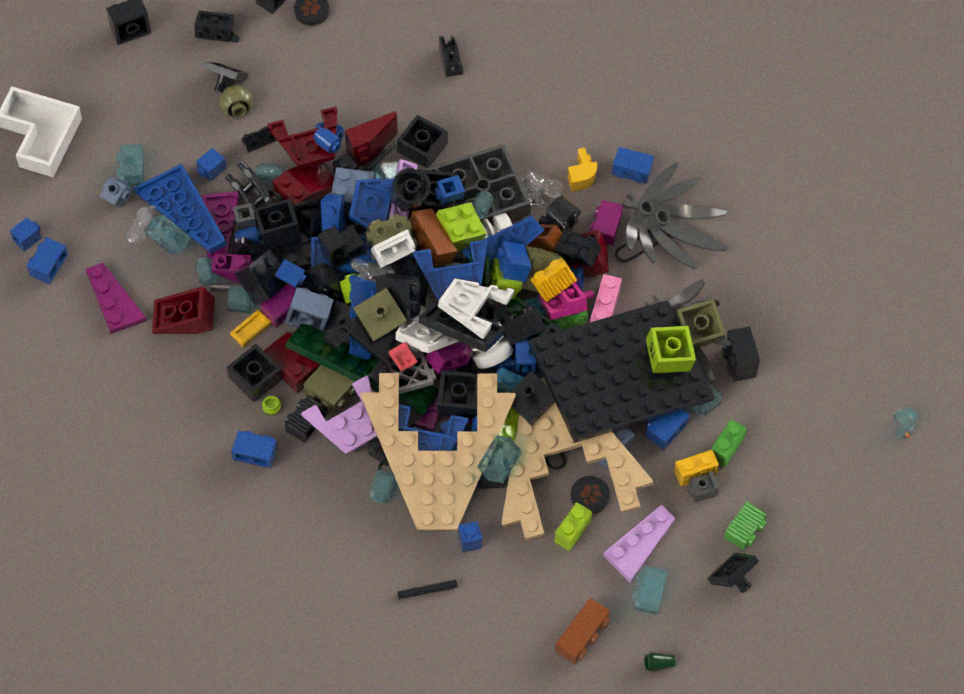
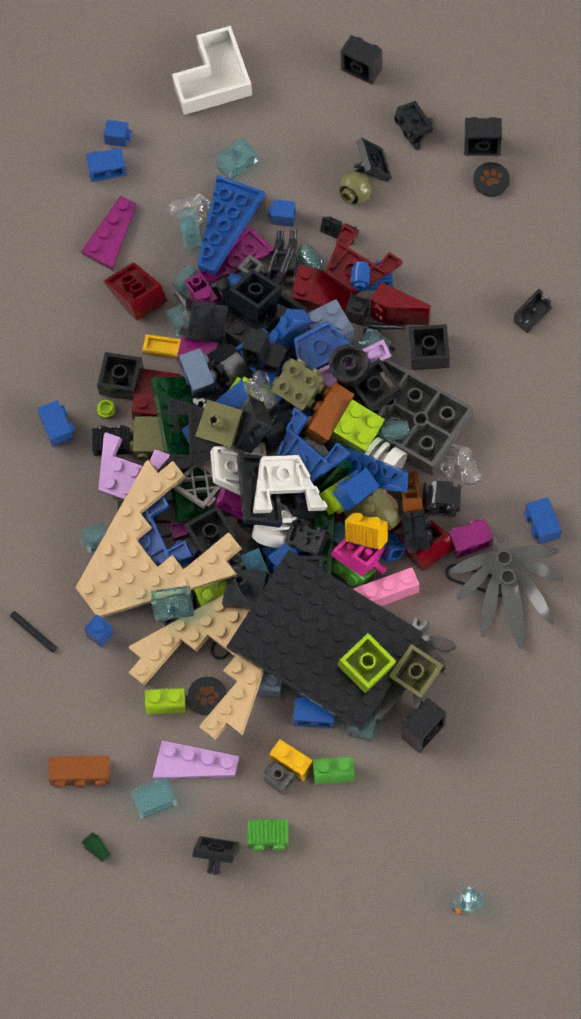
camera: 60 degrees right, 5 degrees up
(116, 191) = (202, 165): sand blue brick -> none
(290, 273) = (211, 335): blue brick -> none
(393, 249) = (284, 391): white hinge -> none
(403, 356) = (201, 467): coral bracket -> none
(450, 184) = (376, 387): blue brick -> none
(584, 174) = (504, 490): yellow brick -> none

